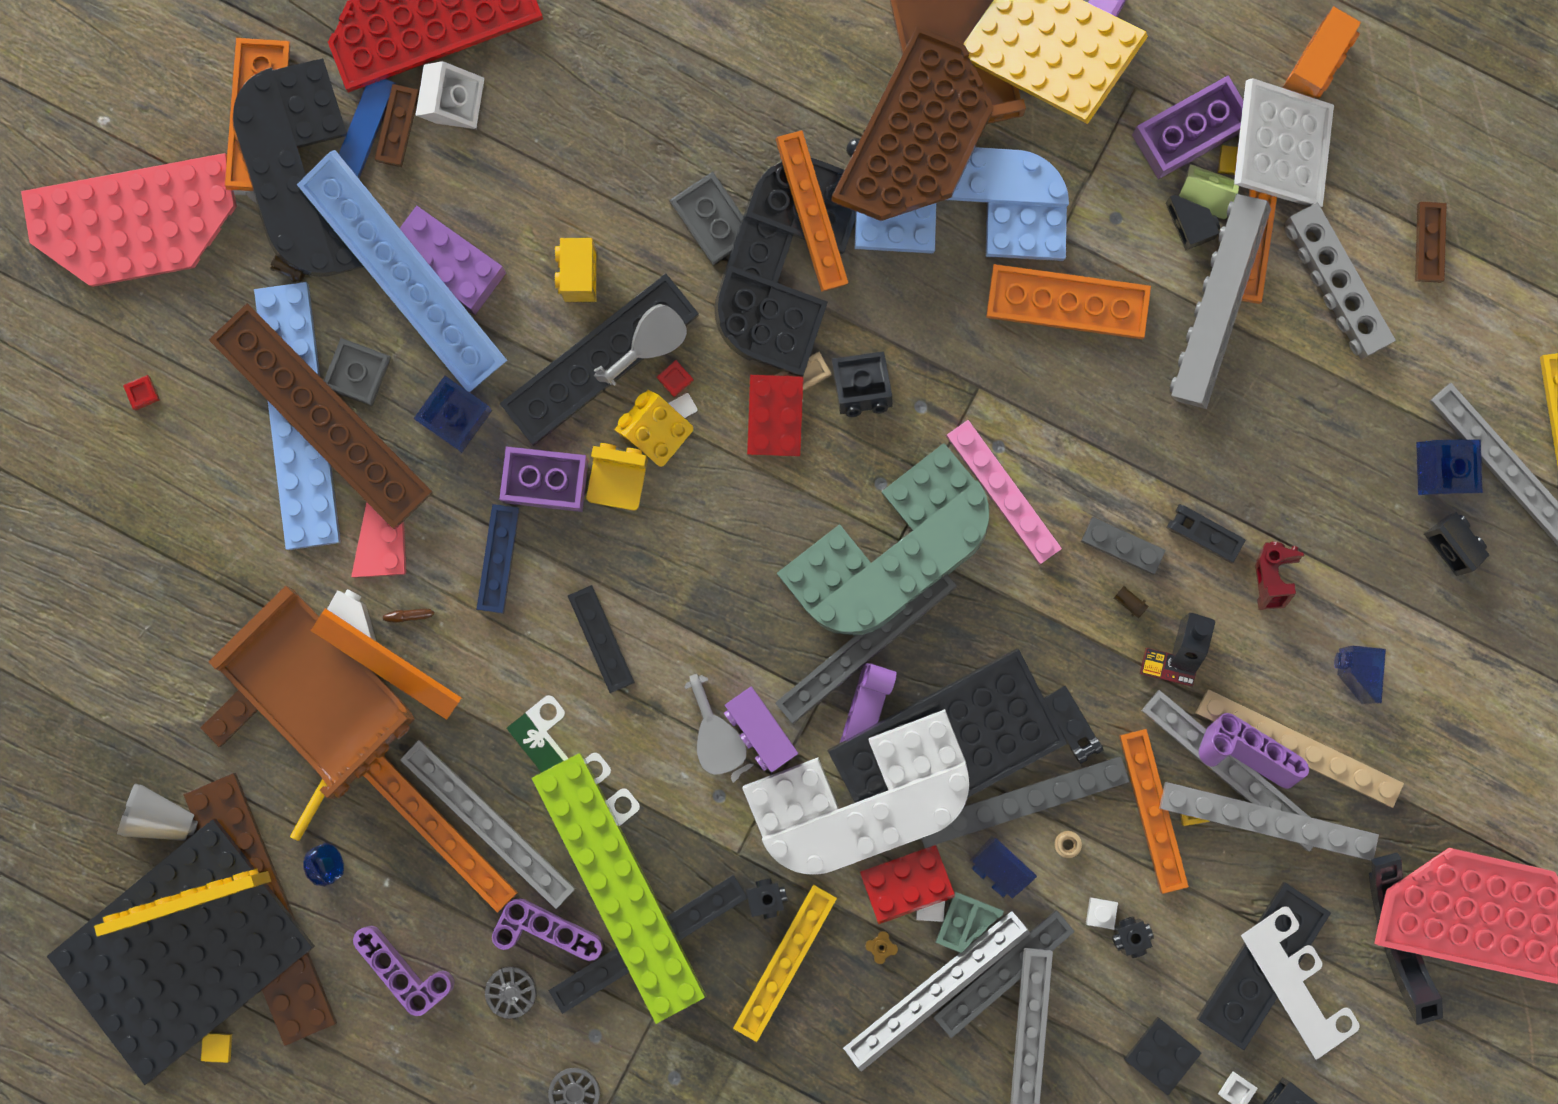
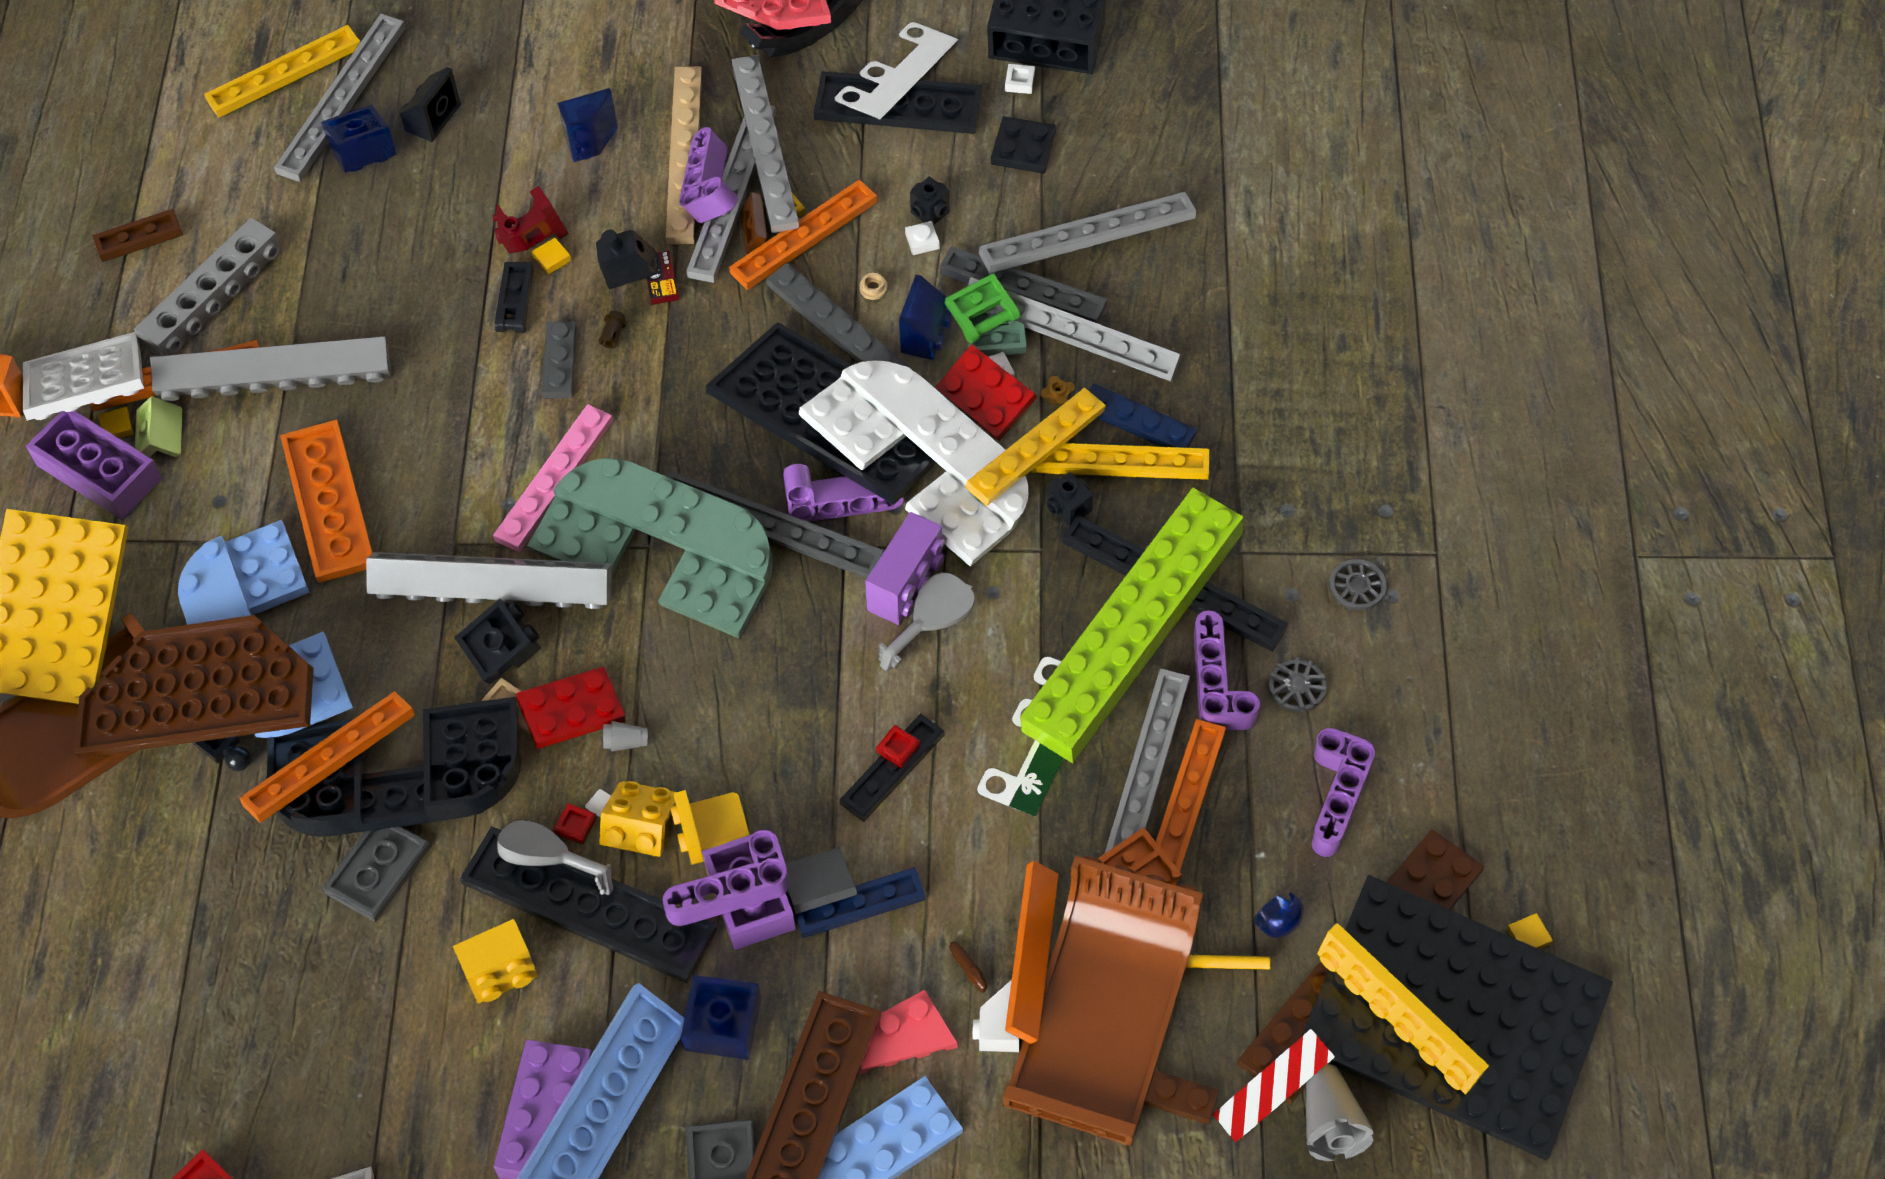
camera: 115 degrees left, 25 degrees down
(196, 786) = (1273, 1085): none -> sticker
(415, 777) = (1143, 857): none -> orange wing
(529, 535) = (819, 880): none -> dark grey tile
(541, 456) = (724, 885): none -> medium lavender beam
(611, 649) = (897, 746): none -> red tile
(728, 445) = (623, 736): none -> light grey cone
(821, 1000) = (1143, 420): none -> dark blue plate
(823, 895) = (1035, 446): none -> yellow plate
(921, 398) = (489, 578): none -> brick
(996, 921) = (977, 300): none -> bright green plate
(1072, 724) = (756, 325): black plate -> none
(1183, 771) = (754, 222): none -> reddish brown plate
(1192, 222) = (197, 428): black slope -> none
(1238, 584) = (551, 256): none -> yellow tile

